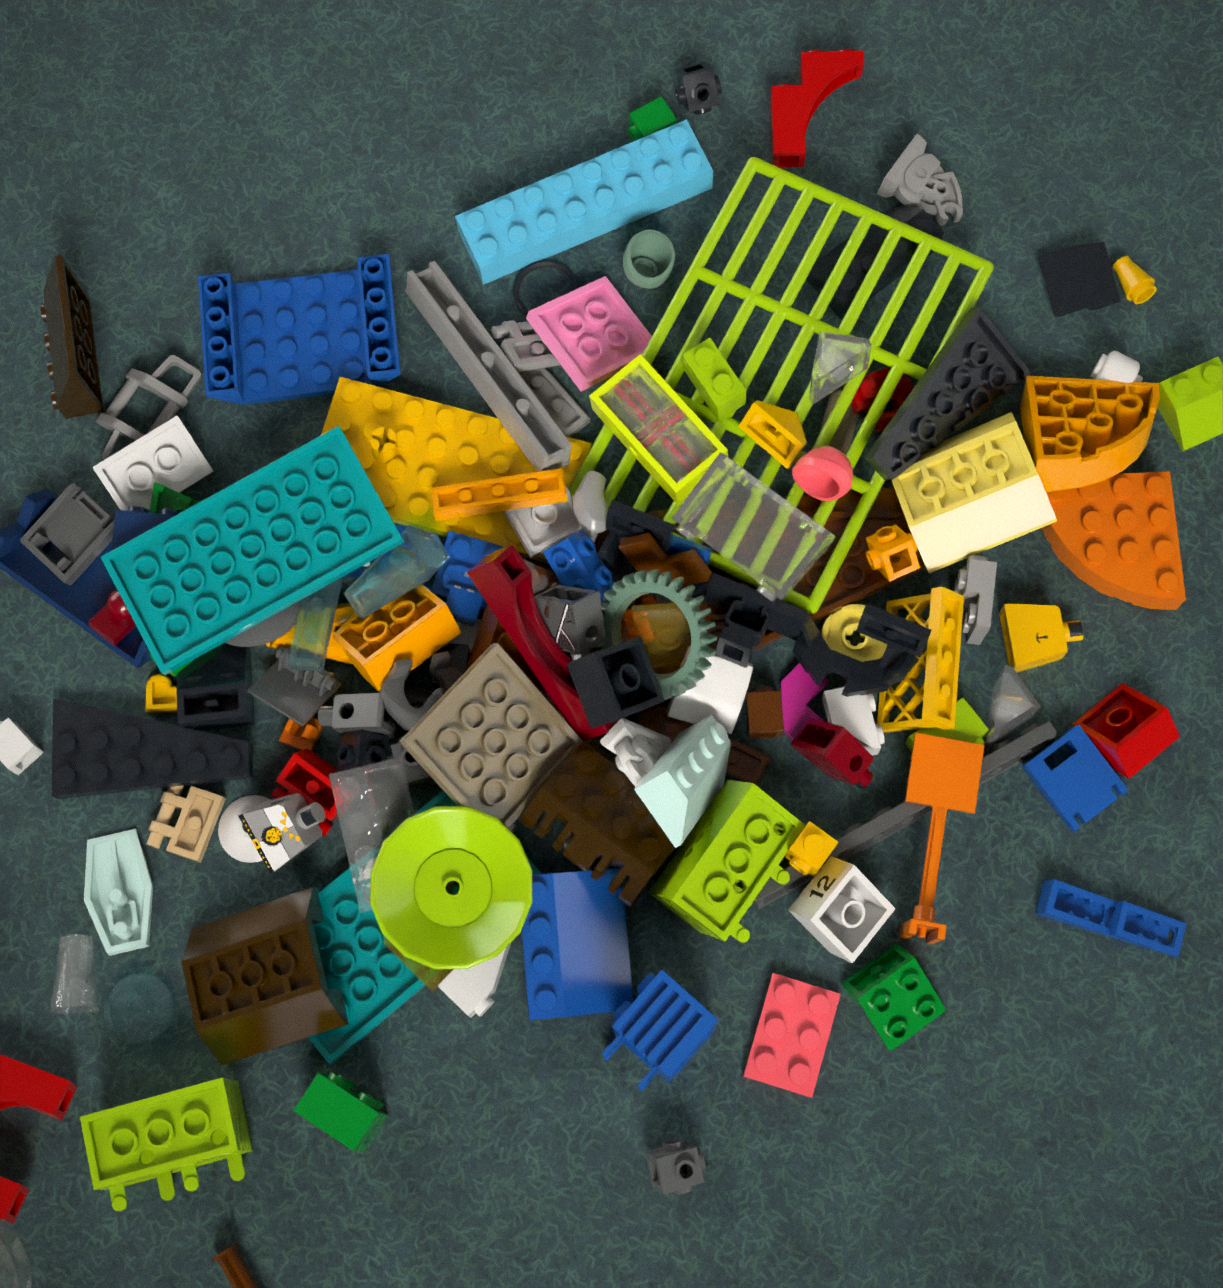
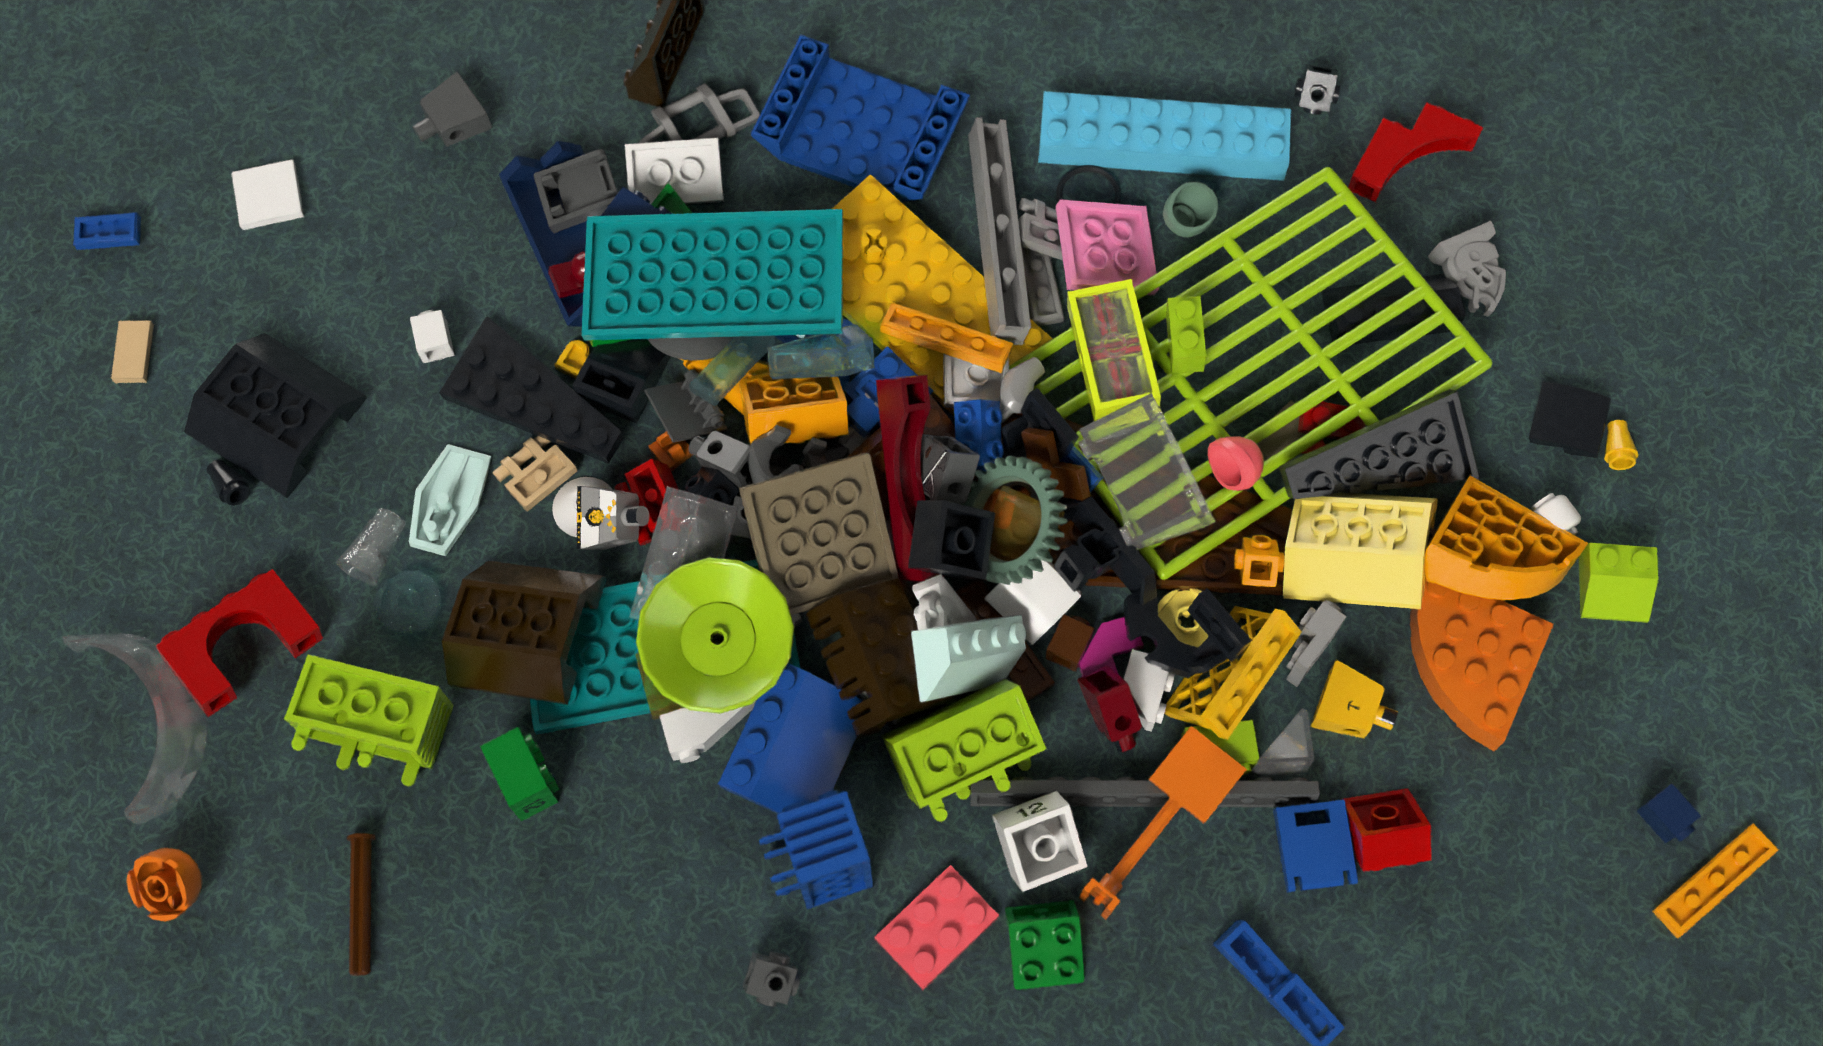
camera: 25 degrees right, 5 degrees down
(650, 119) = (1260, 94): green brick -> none
(775, 431) = (1215, 405): yellow slope -> none
(811, 850) = (1040, 773): yellow brick -> none
(837, 362) = (1298, 373): clear slope -> none

